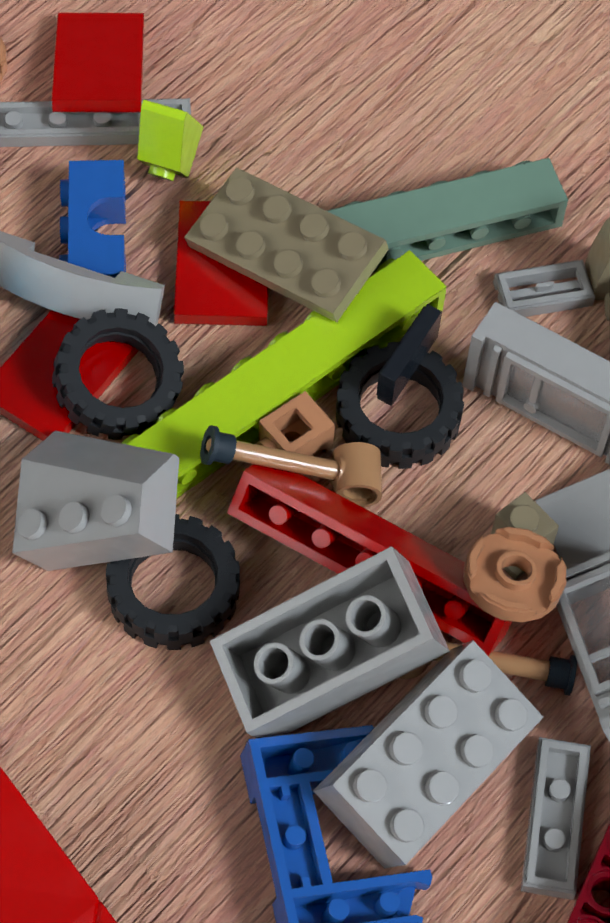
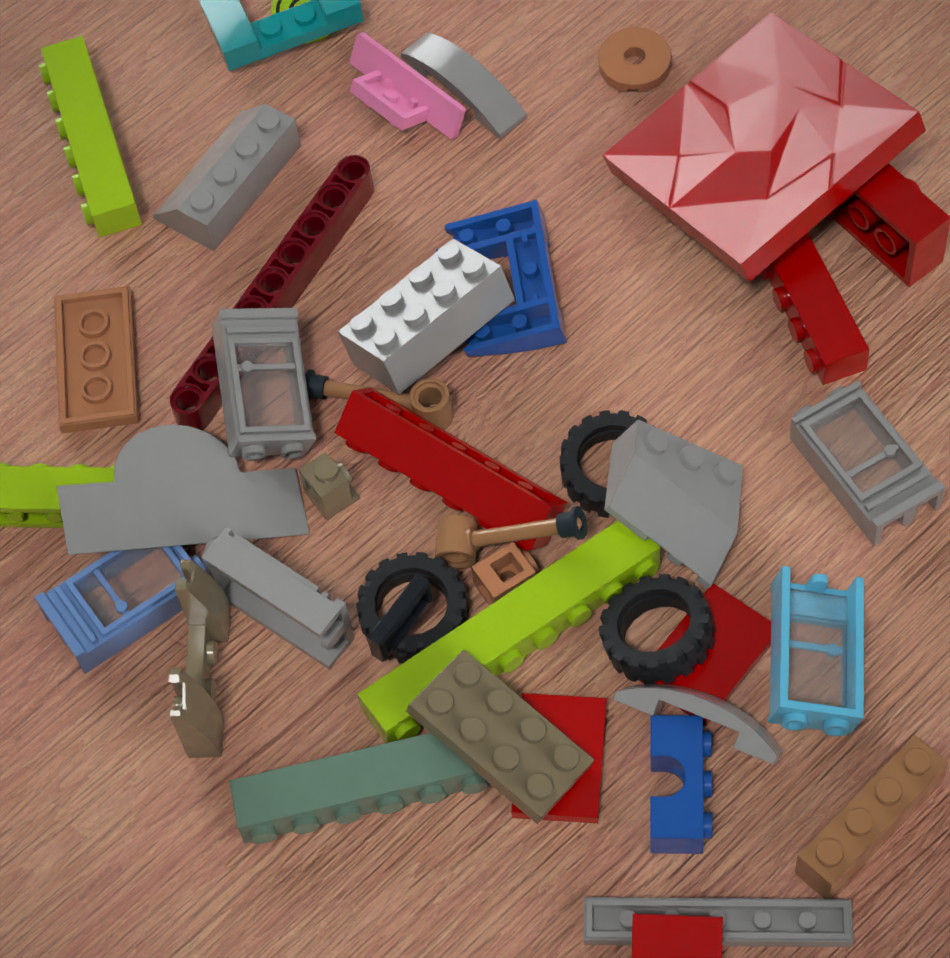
camera: 165 degrees left, 0 degrees up
(167, 140) = (603, 865): lime slope -> none
(329, 645) = (492, 374): light grey brick -> none
(510, 598) = (346, 438): nougat tile -> none
(545, 296) = (268, 737): light grey tile -> none
(556, 818) = (337, 295): light grey tile -> none

